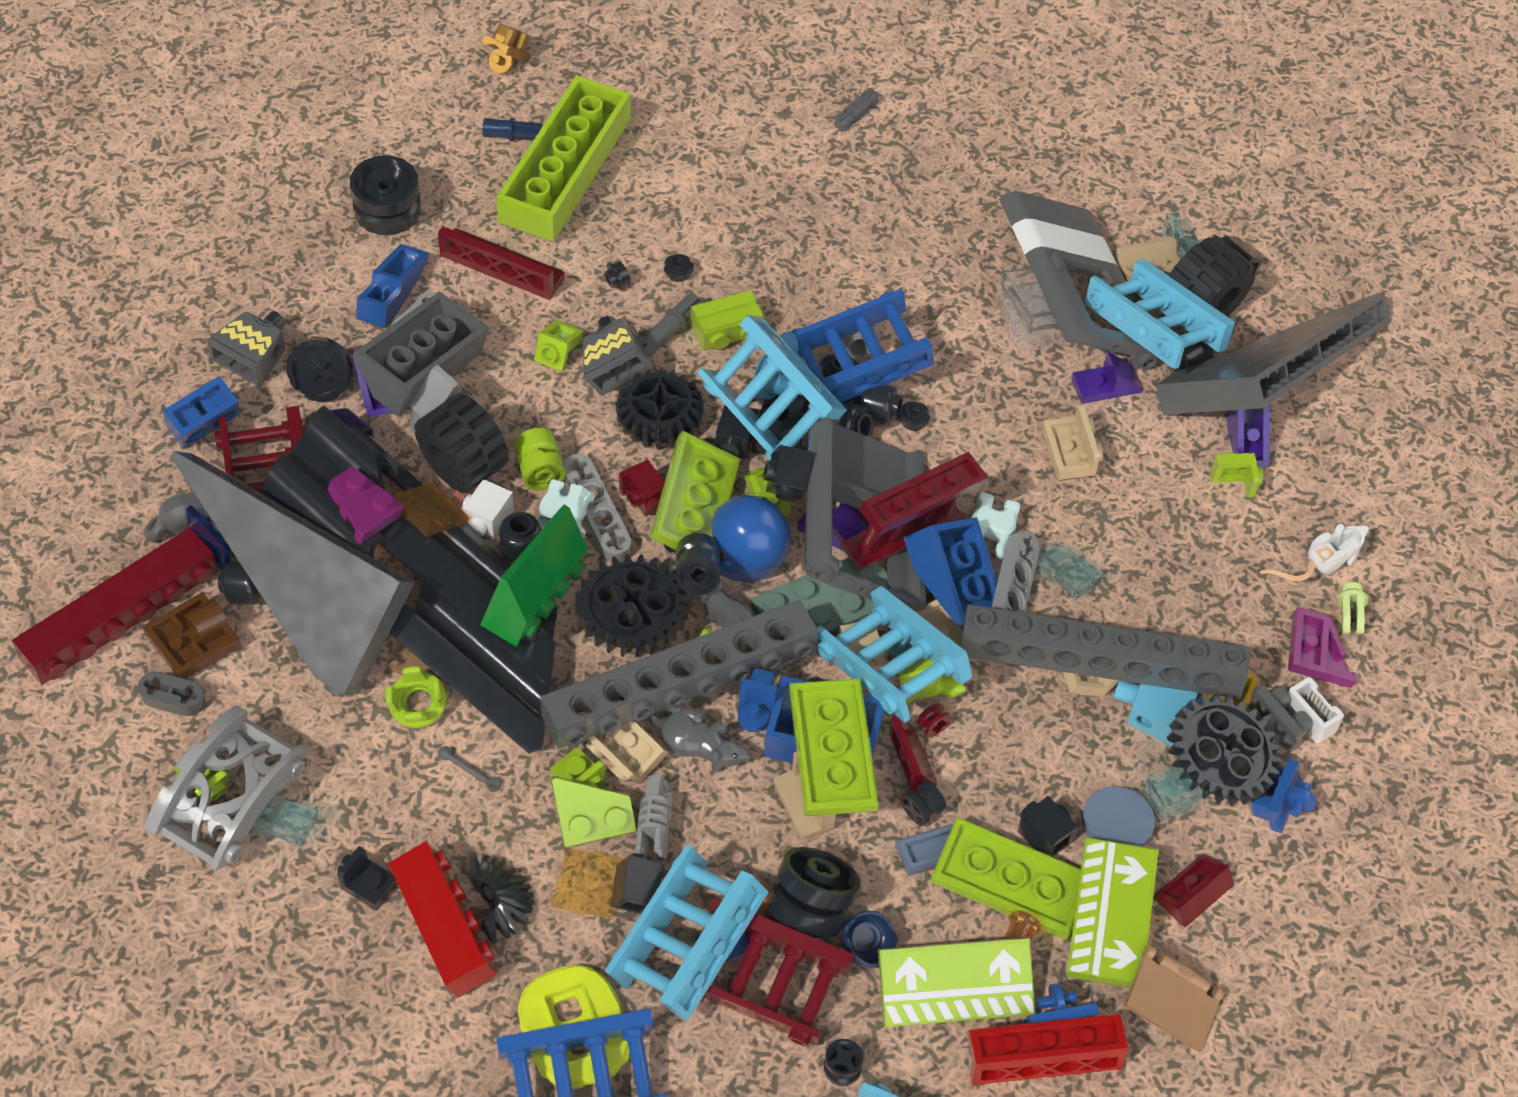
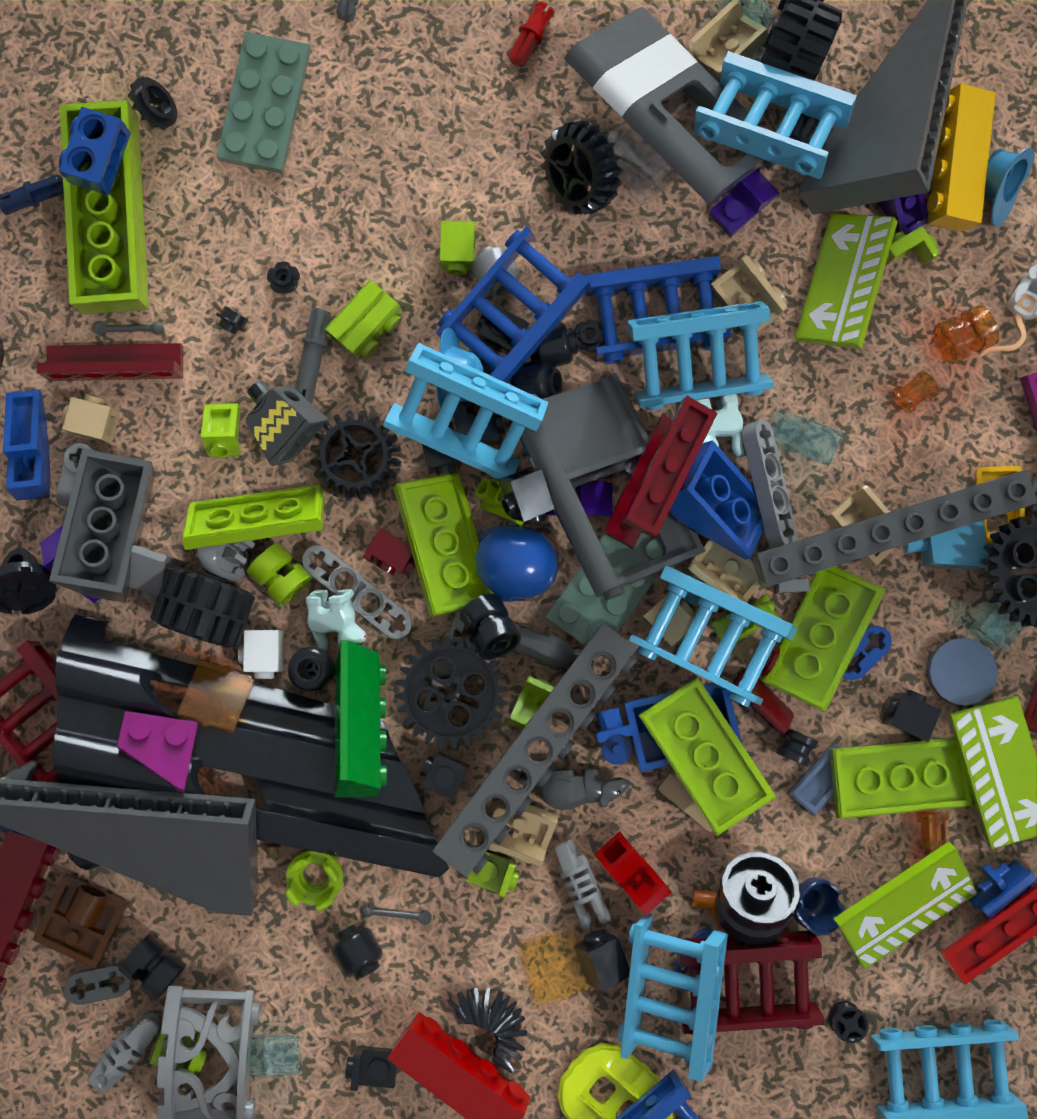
camera: 25 degrees left, 30 degrees up
(152, 754) = (125, 1052): none -> light grey hinge
(226, 687) = (152, 966): none -> black wheel
(416, 773) = (357, 952): none -> black head
(458, 285) = (90, 419): none -> tan brick
(506, 239) = (102, 329): none -> dark grey hinge
(508, 417) = (225, 560): none -> light grey piece
(546, 405) = (254, 516): none -> lime tile
(583, 663) = (443, 774): none -> black brick
(584, 108) = (103, 152): none -> blue brick
(590, 812) = (526, 910): lime wing -> none
(649, 110) = (148, 91): none -> black gear
(709, 826) = (633, 873): none -> red brick
(737, 151) = (264, 102): none -> sand green plate
(837, 298) = (457, 246): none -> lime brick
(974, 288) = (589, 164): none -> black gear
(986, 195) = (530, 34): none -> red axle
(991, 677) = (793, 586): none -> light grey piece
(992, 394) = (636, 282): none -> blue fence
(998, 727) = (828, 634): none -> lime tile
(1027, 436) = (681, 327): none -> medium azure fence
(1029, 758) = (873, 655): none -> blue beam
(1165, 467) = (846, 280): none -> lime tile
(1188, 579) = (916, 391): none -> clear orange bush
(1255, 553) = (970, 332): none -> clear orange wheel
(1316, 426) = (962, 159): none -> yellow brick
(1351, 459) = (1004, 179): none -> dark azure piece

